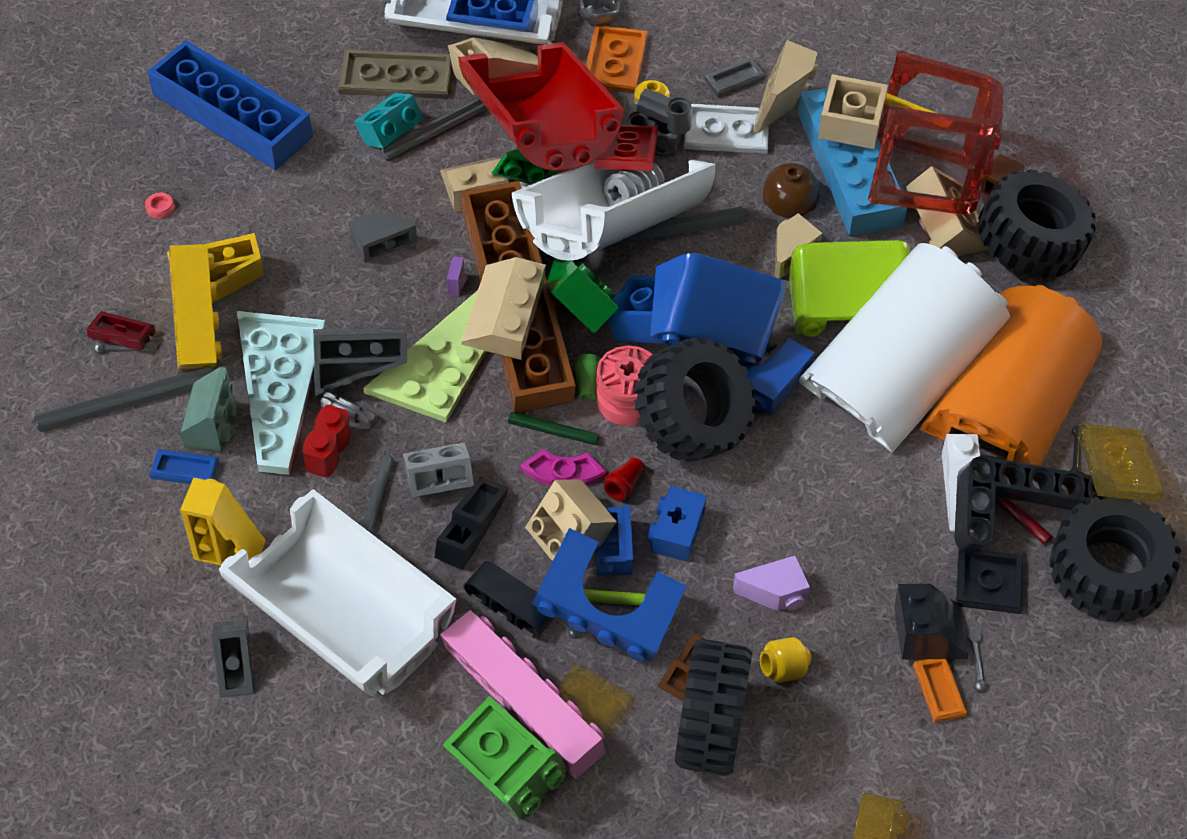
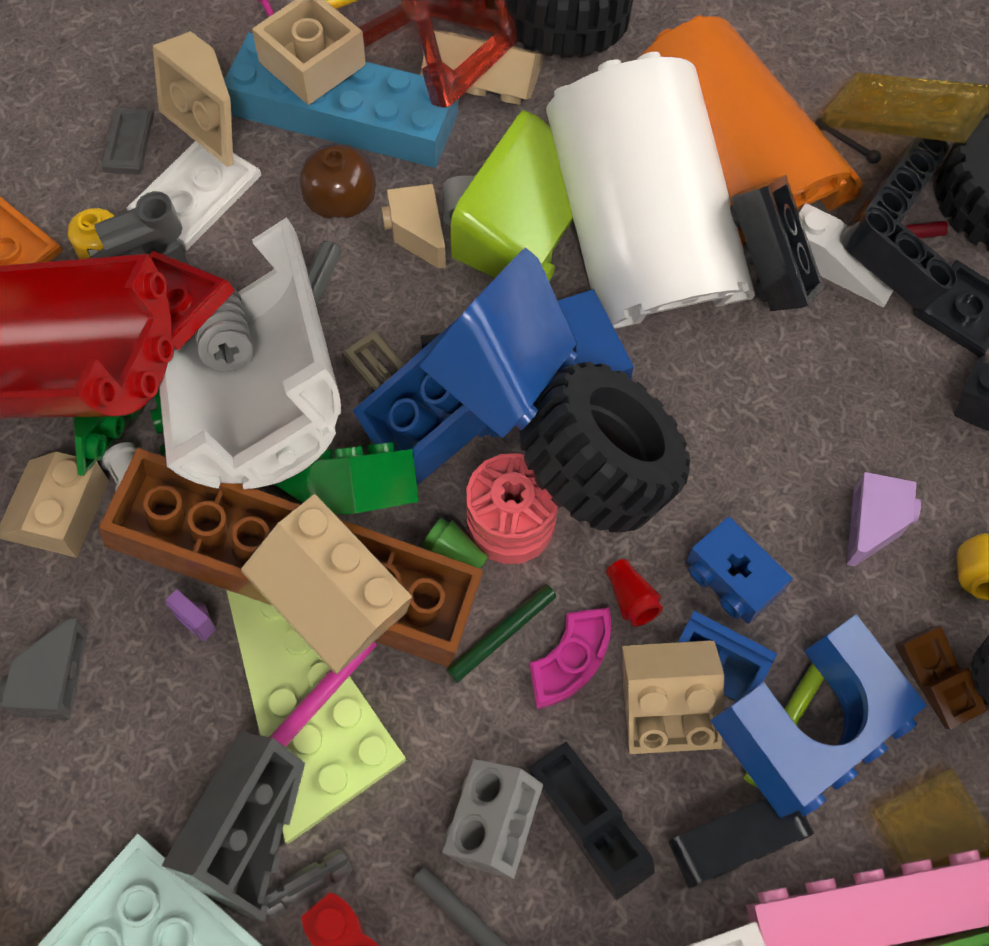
camera: 60 degrees left, 10 degrees up
(454, 355) = (316, 699): none -> dark pink bar
(923, 427) = (777, 245): none -> black slope

